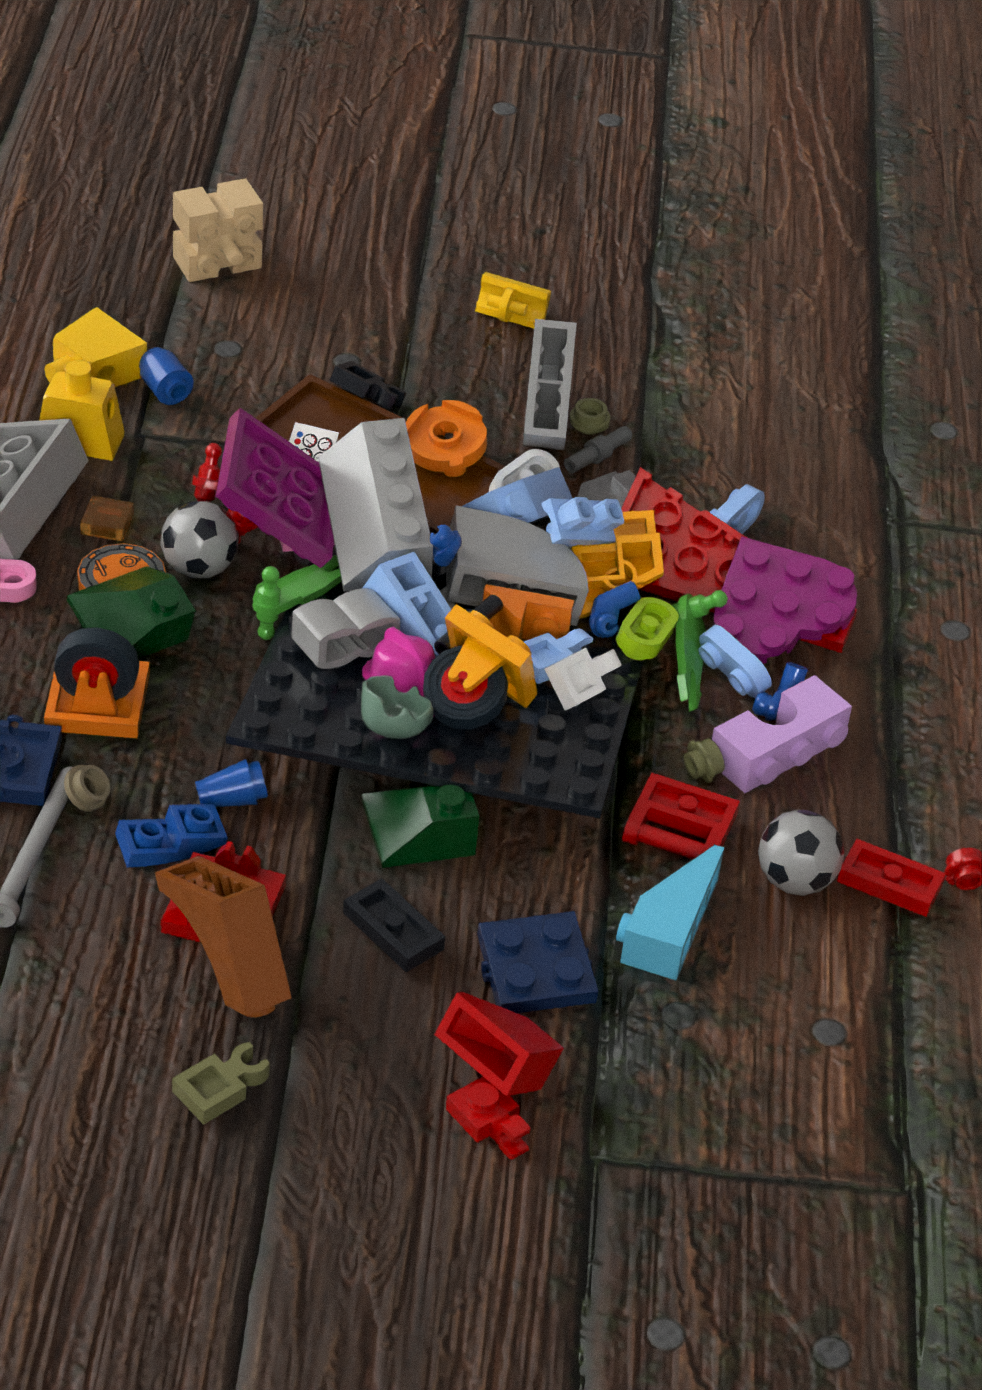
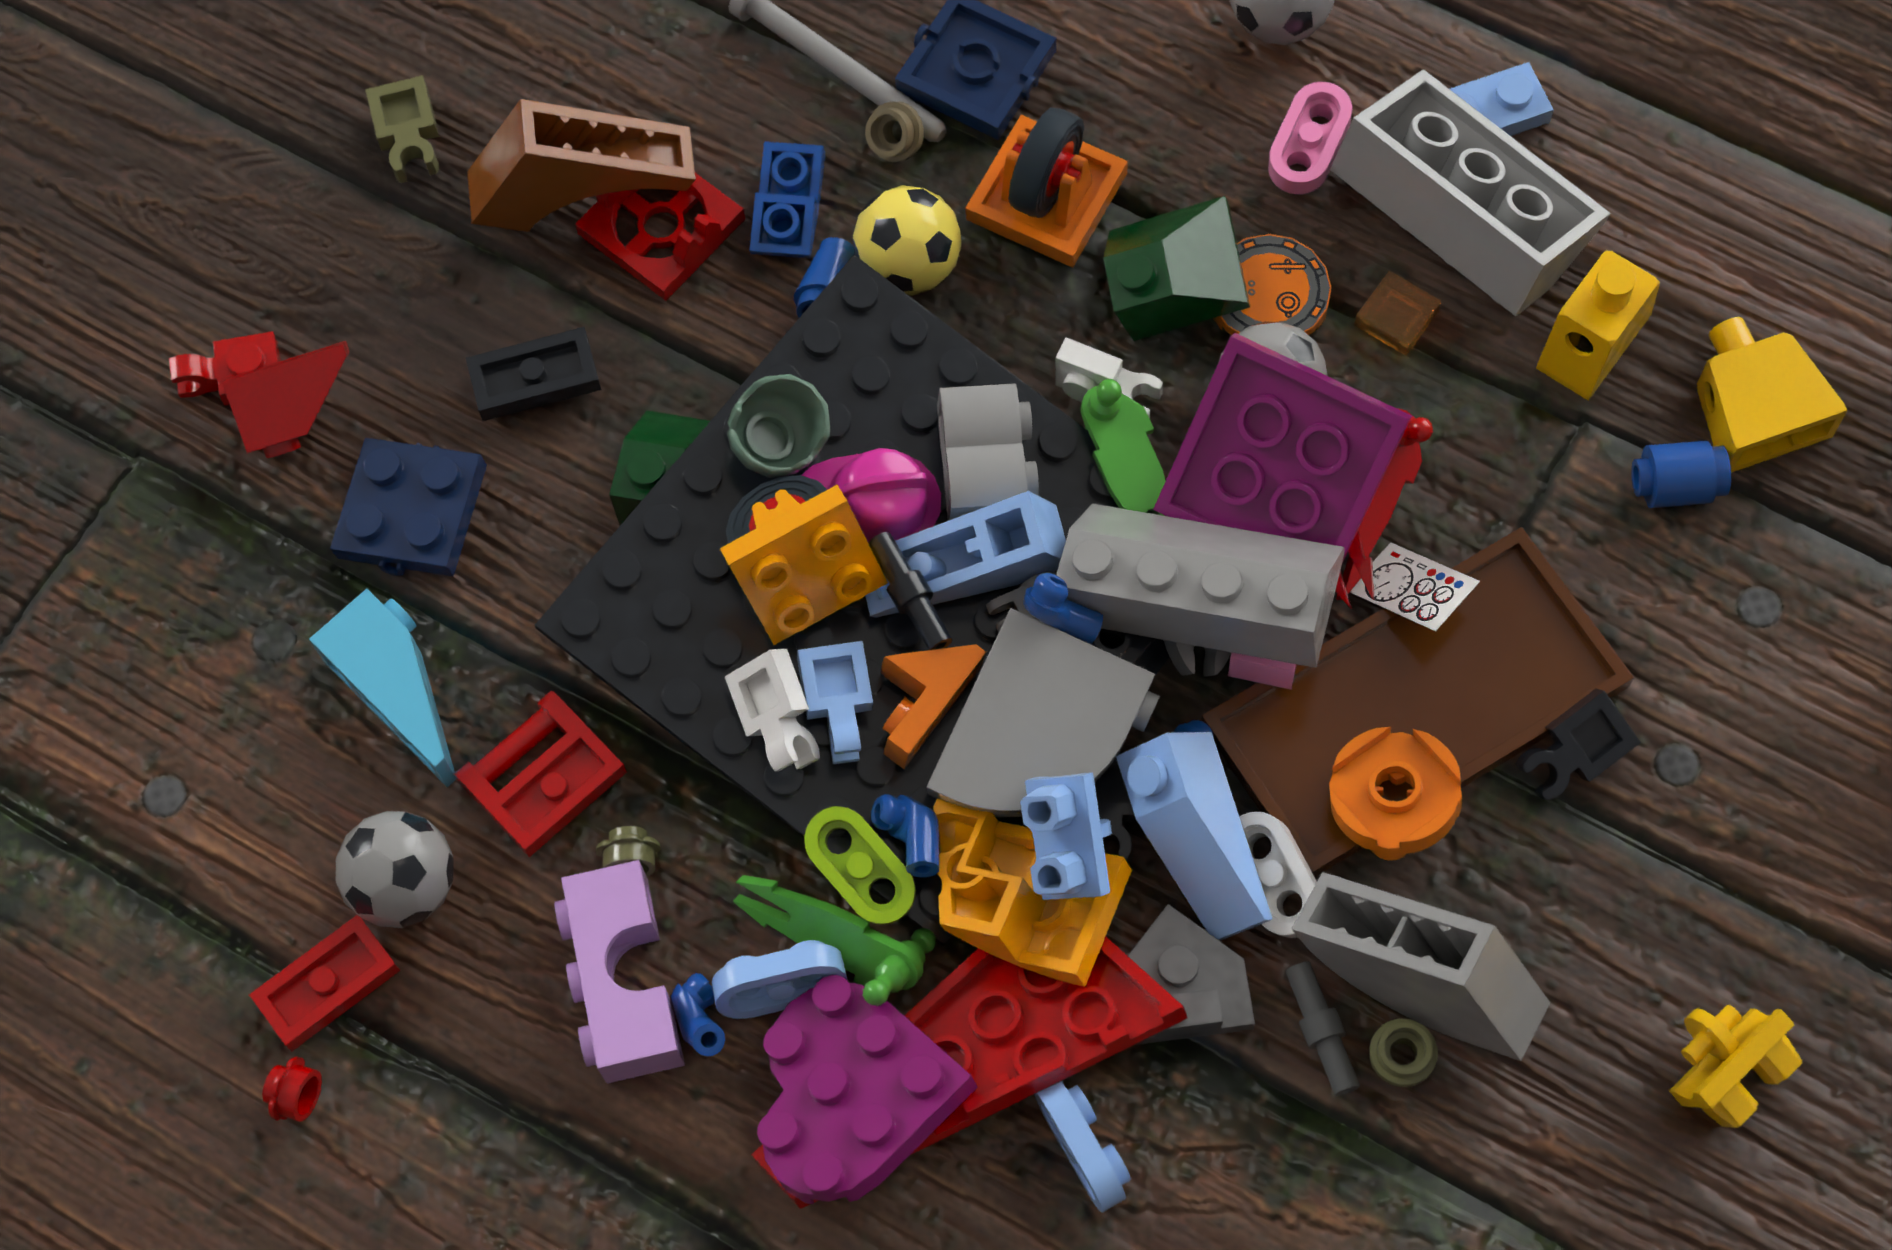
camera: 125 degrees right, 25 degrees up
(185, 736) = (908, 238): none -> light yellow piece
(237, 630) = (1084, 367): none -> white plate

